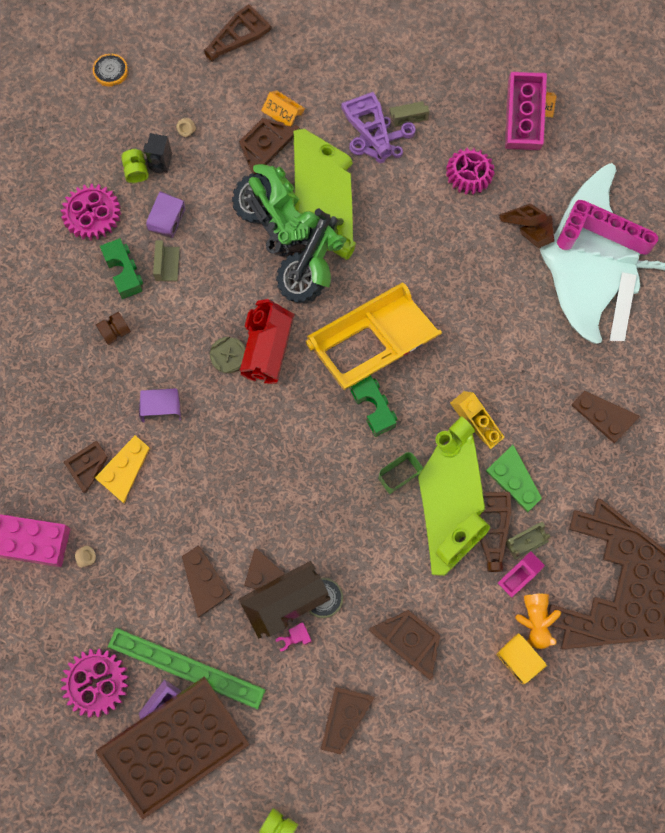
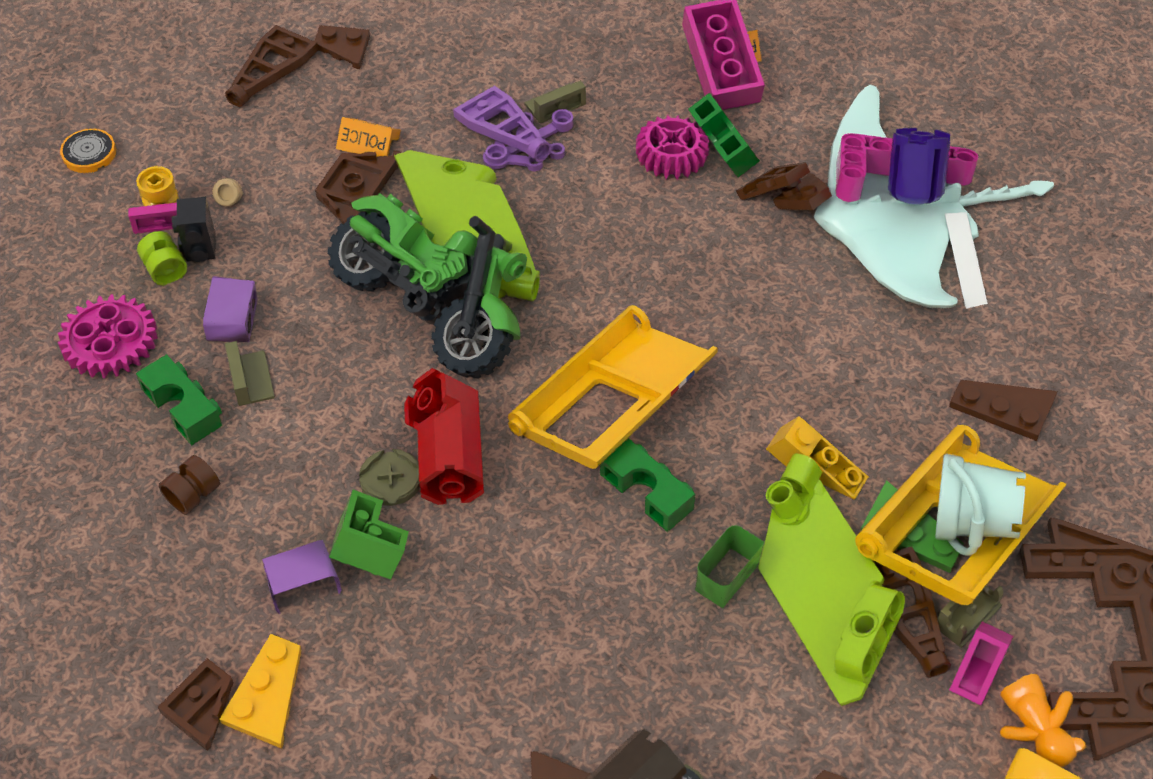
camera: 15 degrees left, 20 degrees down
(137, 134) = (152, 217): none -> dark pink plate
(143, 116) = (157, 186): none -> yellow wheel
(199, 396) = (365, 540): none -> bright green brick
(288, 28) = (343, 43): none -> reddish brown wing
(507, 182) = (723, 135): none -> green arch
(553, 484) = (977, 503): none -> light aqua piece
(562, 466) = (921, 493): none -> yellow piece
(614, 239) = (918, 165): none -> dark purple cylinder

